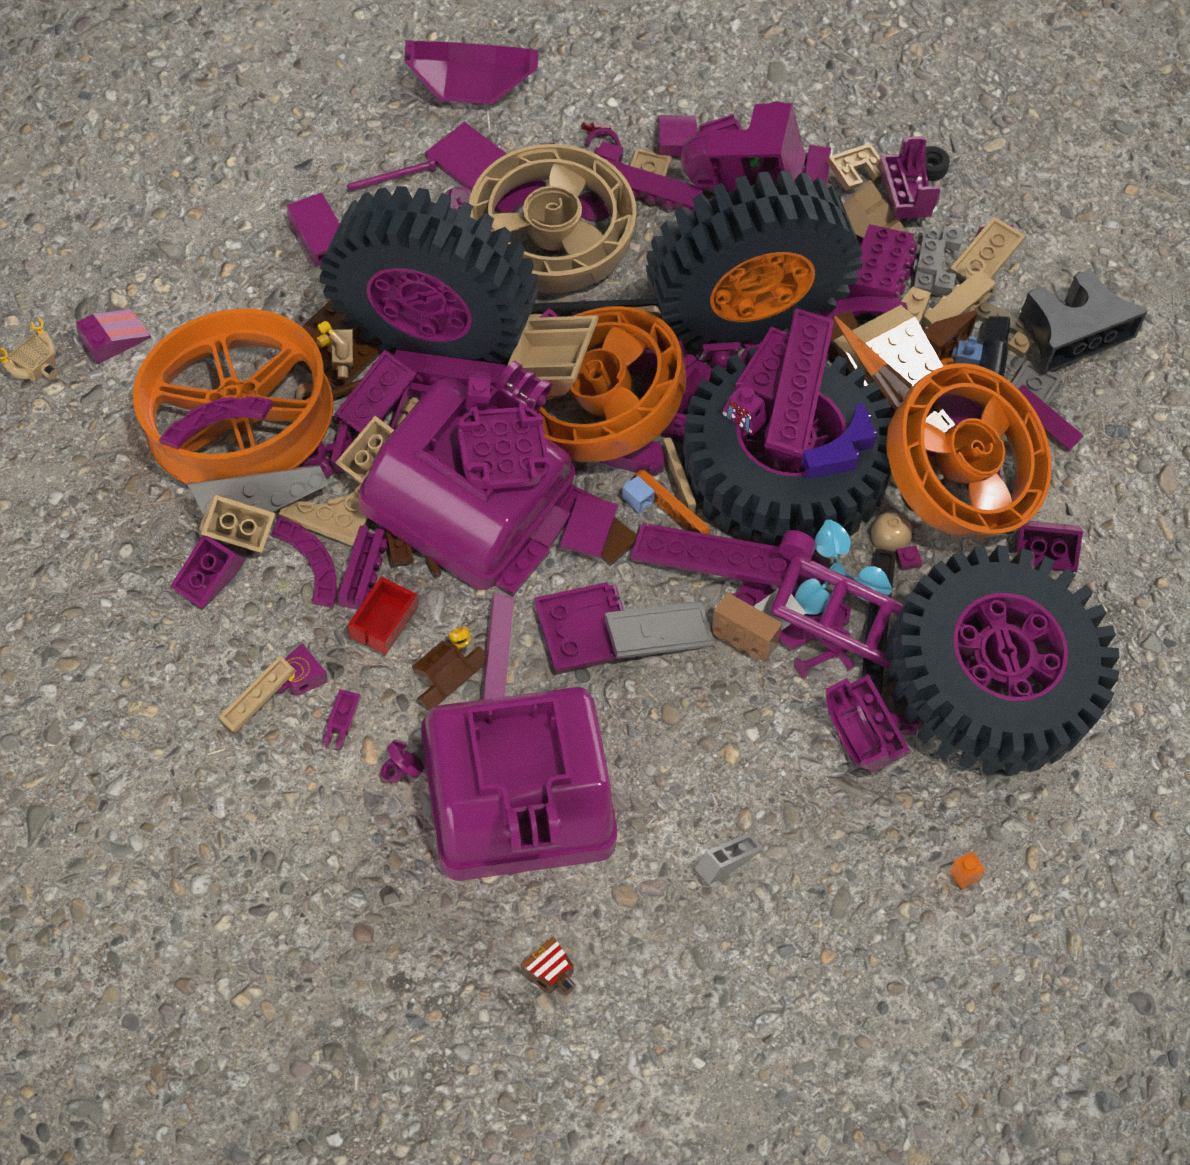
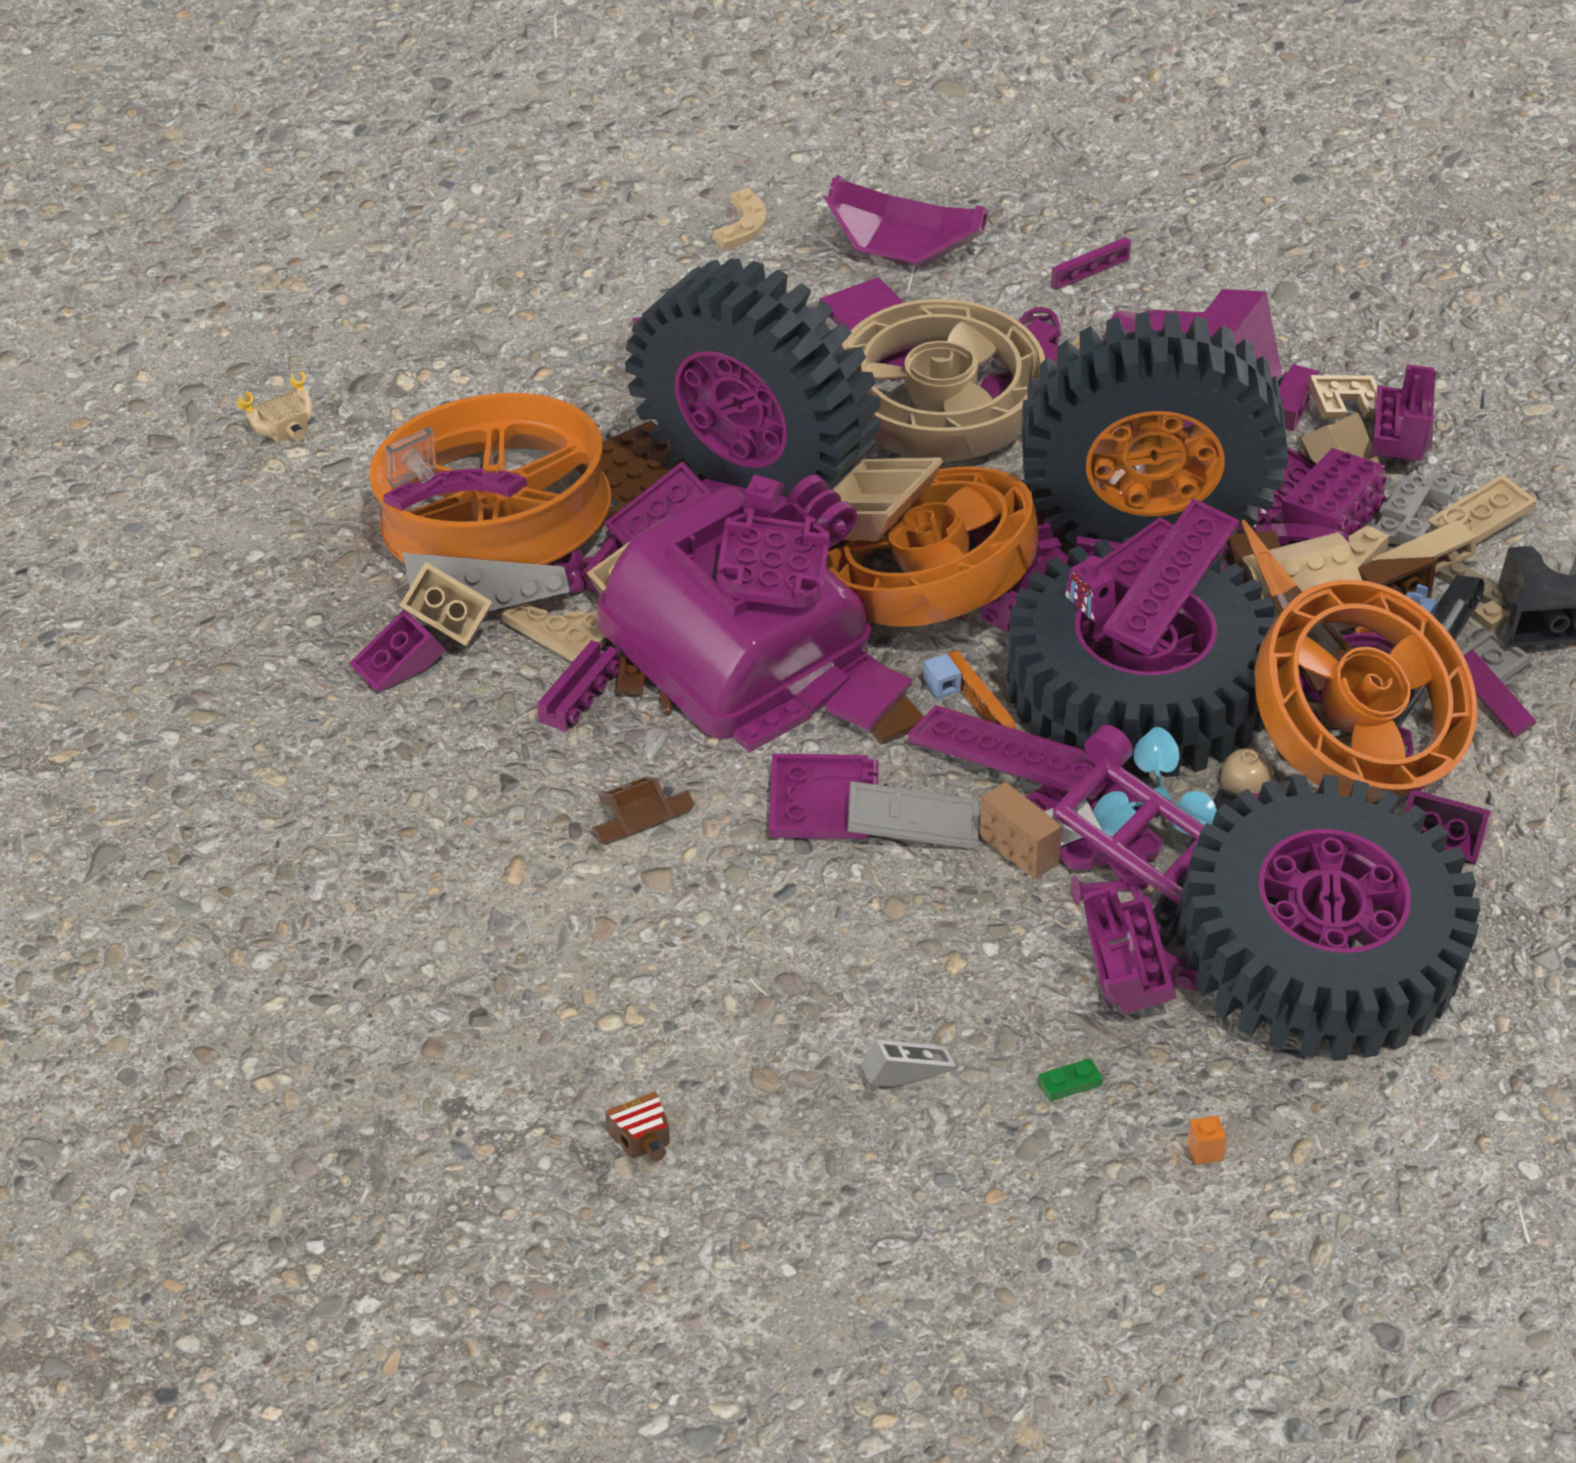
camera: 20 degrees right, 15 degrees down
(111, 333) = (378, 407): magenta slope -> none
(173, 401) = (411, 458): none -> clear tile
(257, 694) = (404, 782): tan tile -> none
(308, 672) = (463, 773): magenta torso -> none
(315, 554) = (530, 664): magenta tile -> none
(339, 347) = (634, 458): tan torso -> none
(342, 717) = (494, 828): magenta hinge -> none
(345, 89) = (750, 224): none -> tan plate
(383, 615) = (583, 734): red piece -> none
(403, 761) = (544, 883): magenta tile -> none
(458, 635) = (666, 773): yellow tile -> none
(497, 646) = (706, 801): magenta tile -> none
(518, 784) = (675, 923): magenta piece -> none
(593, 126) = (1025, 305): dark red bar -> none
(624, 76) = (1090, 263): none -> magenta tile
(646, 458) = (947, 636): magenta slope -> none
(678, 474) = (999, 661): tan tile -> none
(843, 452) = (1198, 655): dark purple arch -> none
(850, 839) = (1070, 1079): none -> green plate
(942, 160) = (1449, 412): black tyre -> none

